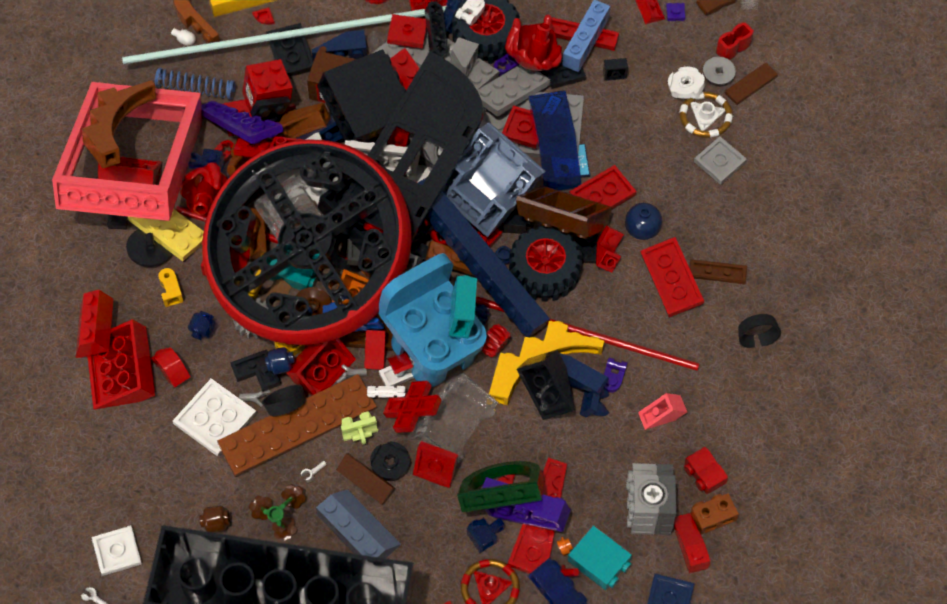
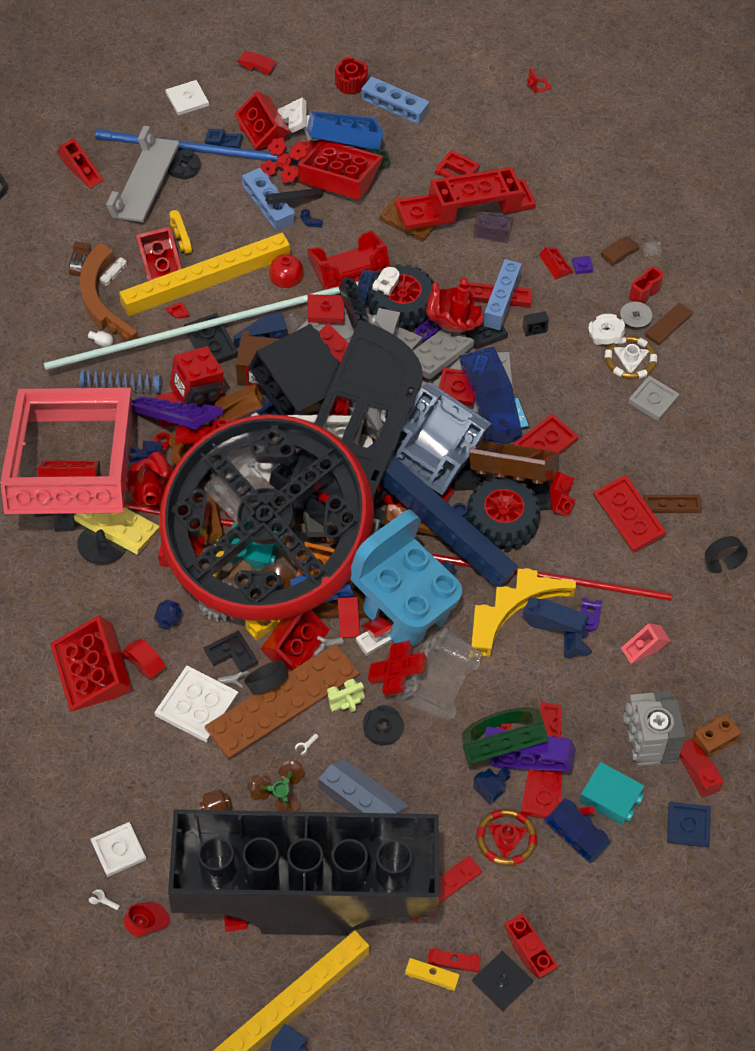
camera: 10 degrees left, 5 degrees down
(94, 324) = (57, 625): red slope -> none
(111, 111) = (40, 421): dark orange arch -> none
(170, 284) = (132, 585): yellow leg -> none
(279, 360) = (255, 638): dark blue head -> none
(365, 478) = (361, 745): reddish brown tile -> none
(386, 391) = (367, 657): white axle -> none
(435, 464) = (430, 721): red plate -> none
(462, 306) = (437, 560): teal brick -> none
(496, 340) = (470, 593): red gear -> none
(547, 384) = (529, 629): black slope -> none
(564, 545) = (574, 786): orange plate -> none
(643, 221) = (590, 463): dark blue cylinder -> none
(705, 470) = (699, 695): red brick -> none

